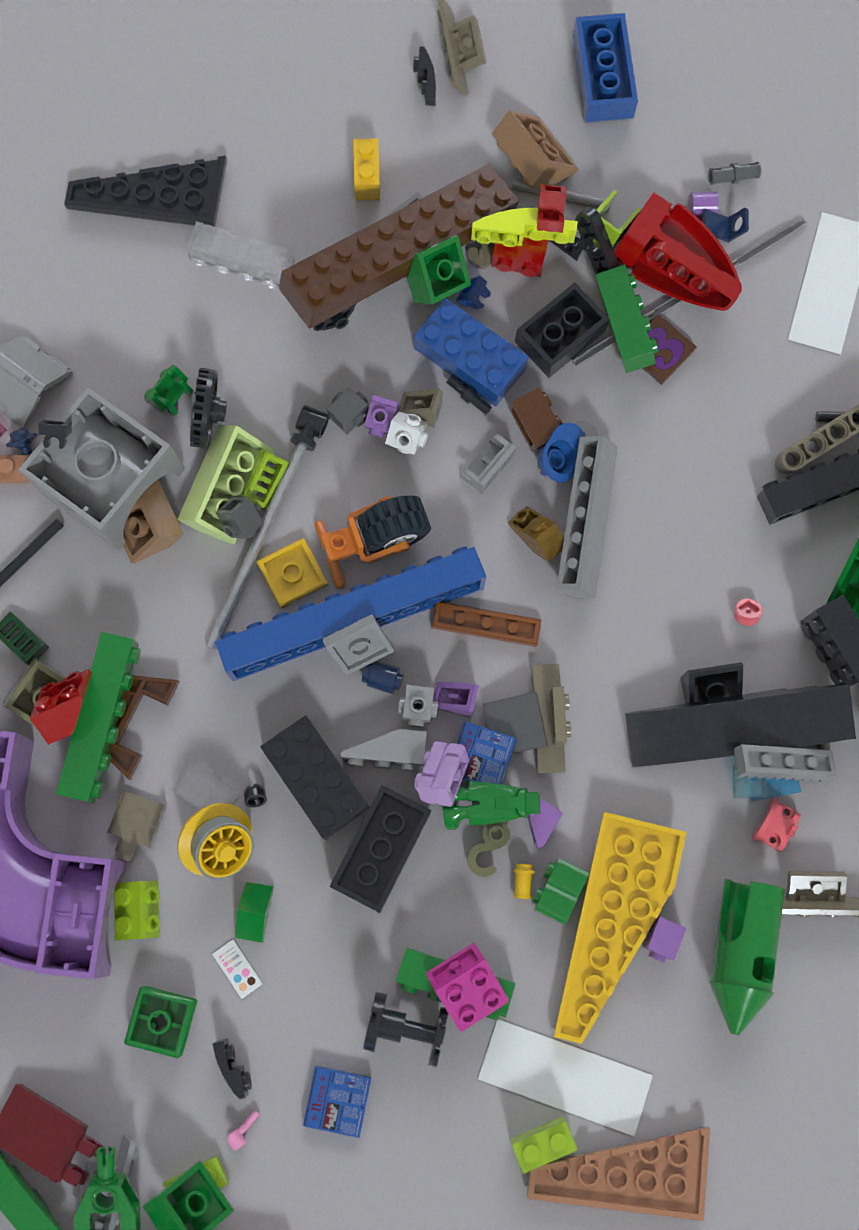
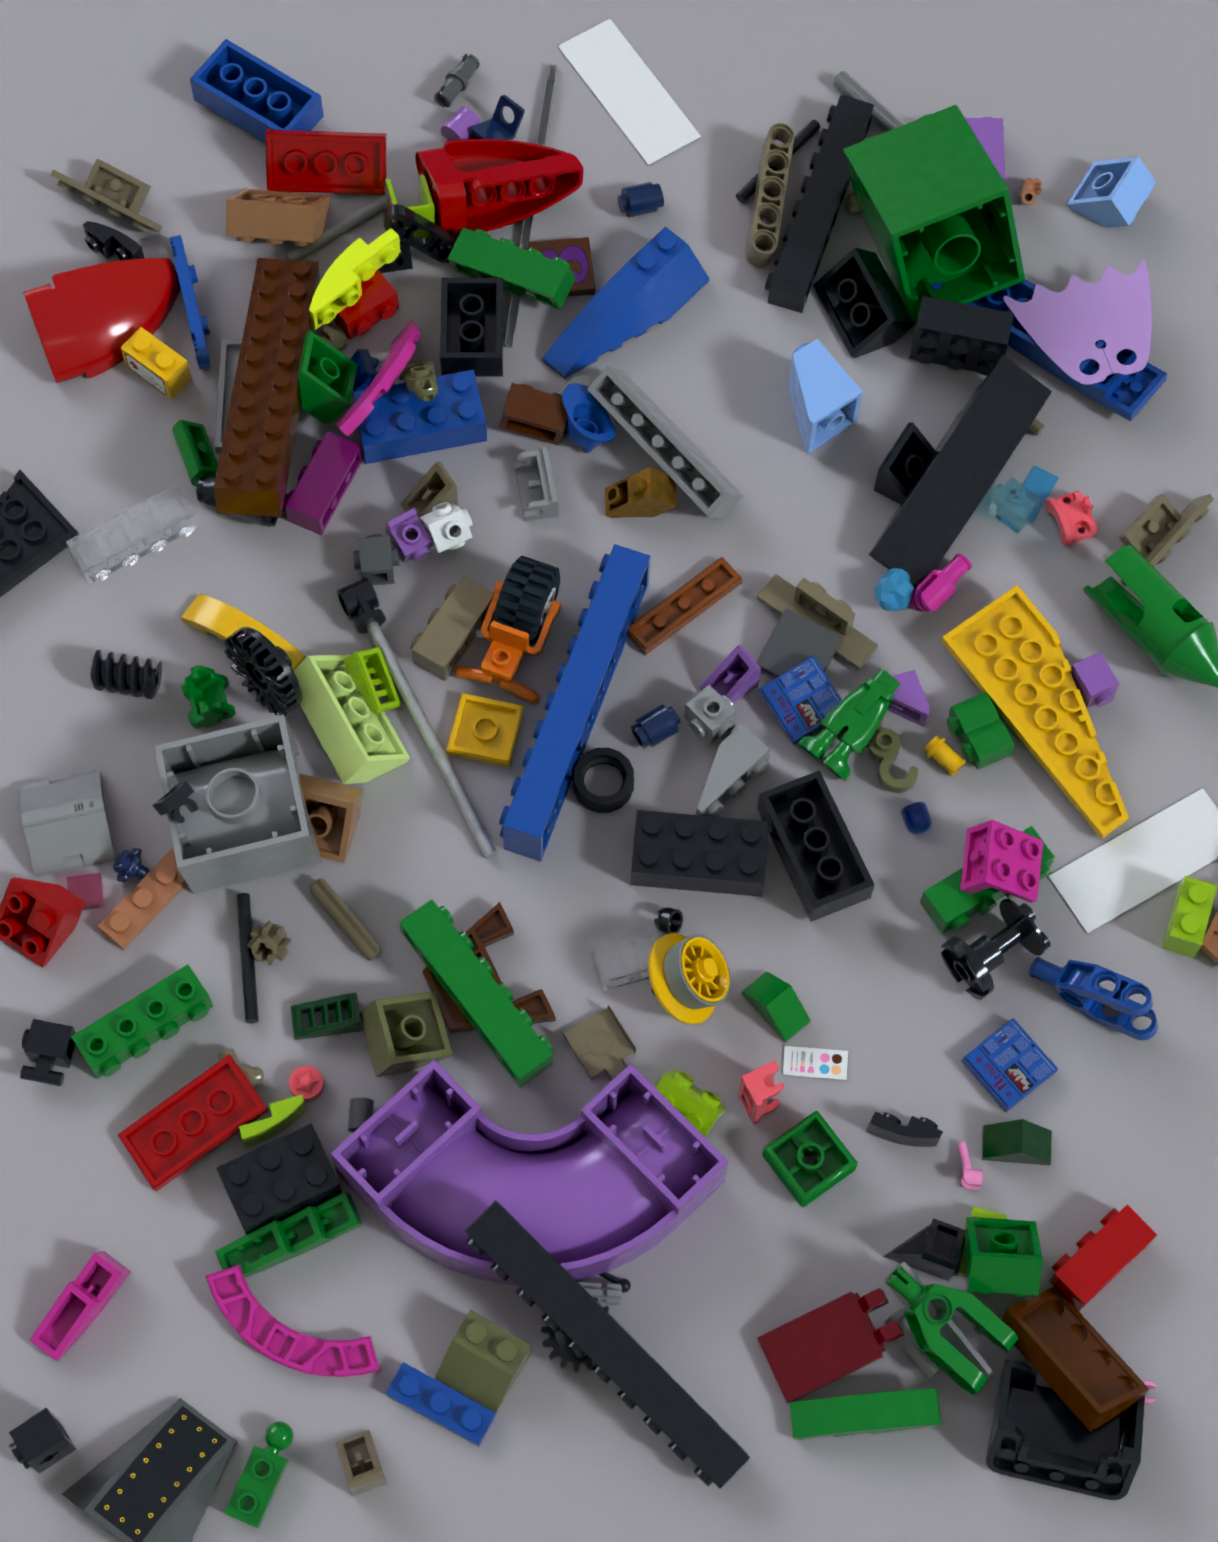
camera: 50 degrees left, 10 degrees down
(36, 564) = (269, 942): none -> dark tan gear
(60, 706) = (444, 1000): red slope -> none
(93, 596) = (345, 919): none -> dark tan axle
(141, 331) = (125, 676): none -> black piece
(164, 1152) = (932, 1249): none -> black slope
(173, 953) = (757, 1088): none -> coral hinge
(230, 375) = (223, 620): none -> yellow slope
(240, 518) = (395, 726): dark grey brick -> none
(284, 1151) = (1016, 1142): none -> dark green slope
(303, 659) = (603, 756): none -> black tyre
(331, 233) = (195, 450): none -> green brick
(340, 494) = (451, 628): none -> dark tan brick
(358, 644) = (614, 711): light grey plate -> none
(369, 103) = (98, 311): none -> red panel
(374, 334) = (323, 482): none -> magenta brick
(416, 168) = (197, 324): none -> blue piece
(428, 1120) = (1080, 988): none -> blue piece
(442, 773) = (794, 736): lavender brick -> none
(463, 897) = (916, 817): none -> clear blue piece
(469, 395) = (456, 451): black bar -> none
(470, 308) = (399, 356): none -> dark pink tile
(487, 329) = (420, 379): none -> olive piece
(551, 208) = (360, 237): red slope -> none
(597, 145) = (326, 161): none -> red tile
(613, 751) = (894, 590): none -> dark azure rock
(644, 778) = (939, 585): none -> dark pink arm
(677, 412) = (634, 299): none -> blue wedge
(713, 589) = (821, 395): none -> light blue slope
(747, 612) = (871, 388): coral tile -> none
(754, 355) = (640, 199): none -> dark blue brick
(784, 763) = (1025, 462): light grey gear -> none
(811, 558) = (863, 303): none -> black slope

